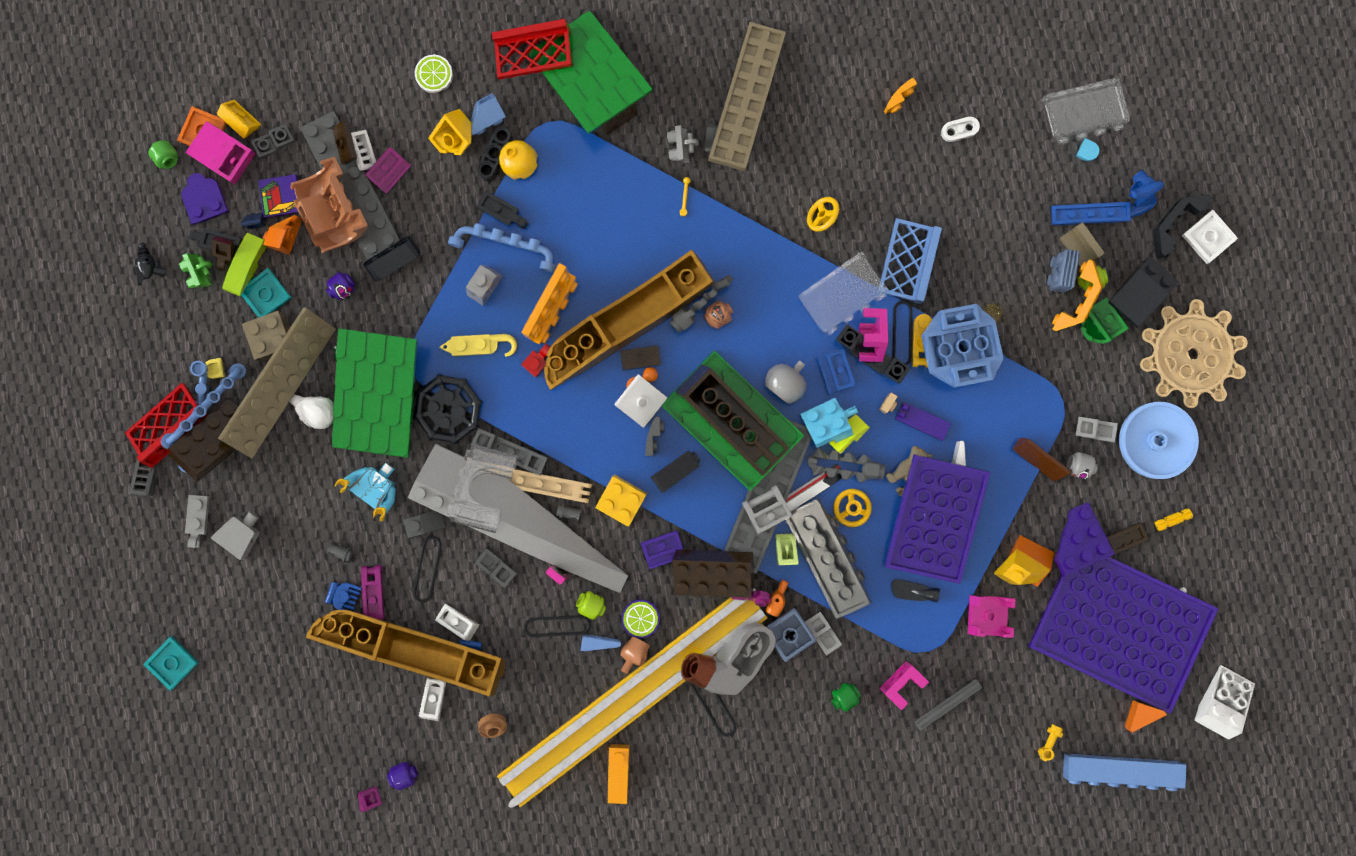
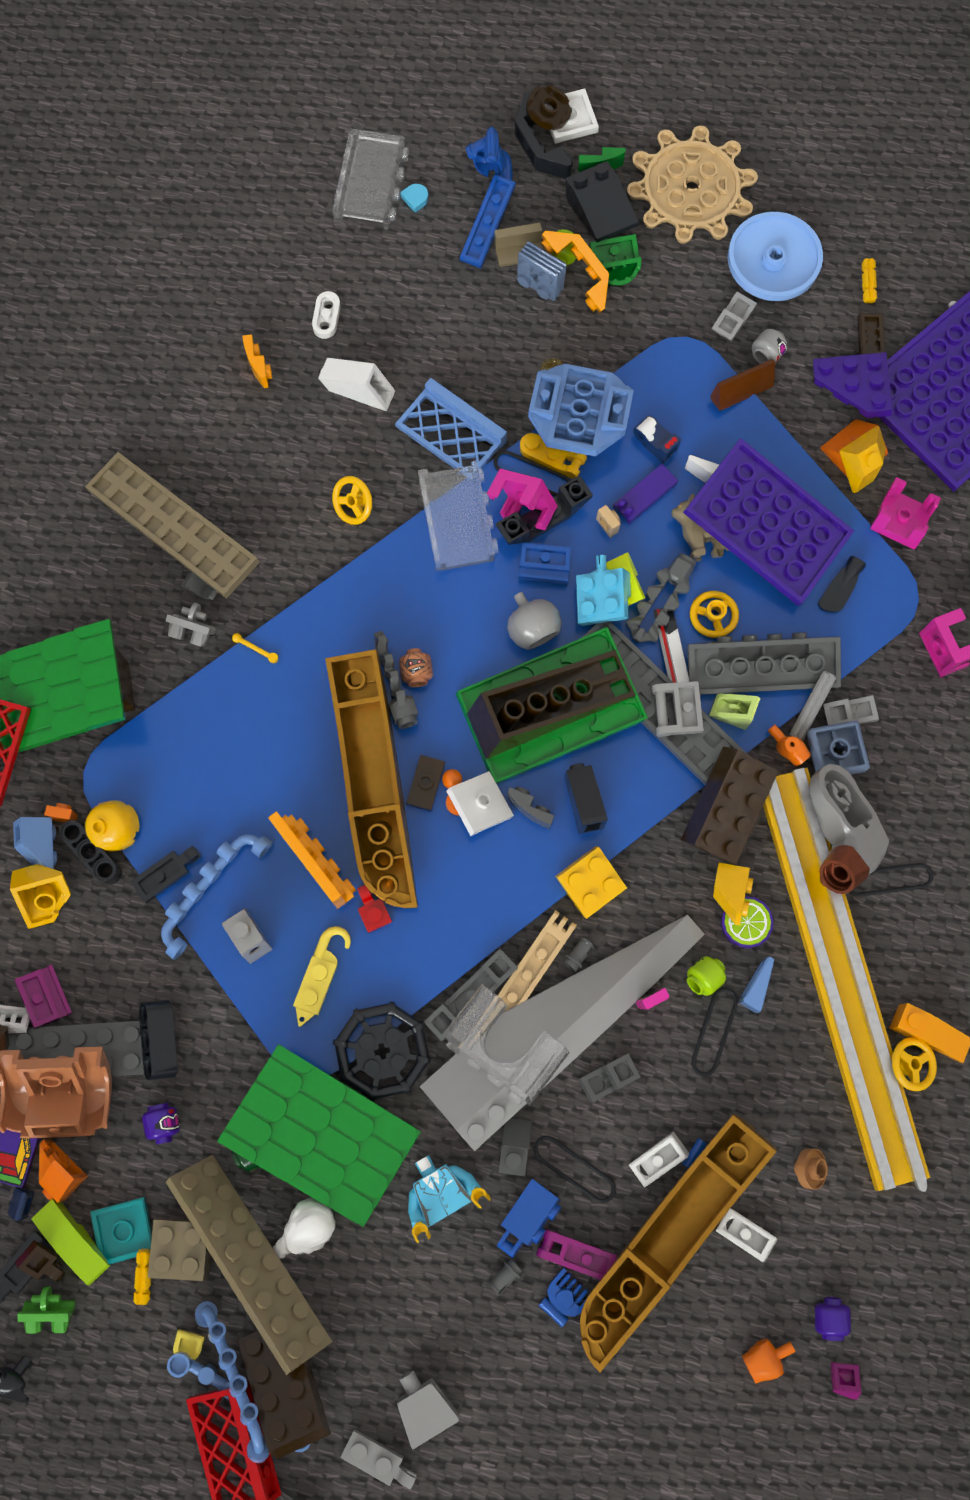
camera: 70 degrees left, 10 degrees down
(232, 325) = (142, 1282): none -> yellow axle
(358, 741) = (765, 1361): none -> orange piece
(382, 551) = (529, 1217): none -> blue brick
(513, 121) = (61, 813): none -> orange plate
(589, 759) = (906, 1064): none -> yellow piece
(634, 653) = (787, 947): nougat piece -> none
(656, 597) = (730, 890): none -> yellow slope
(661, 549) = (671, 858): dark purple plate -> none
(759, 597) = (782, 762): magenta plate -> none
(813, 604) = (813, 705): none -> light grey axle
(845, 697) = (938, 717): green head -> none
(915, 176) = (357, 381): none -> white slope
(968, 411) = (656, 438): none -> dark blue leg
(1185, 282) = (612, 155): none -> green slope
(1195, 218) = (544, 117): none -> dark brown tile

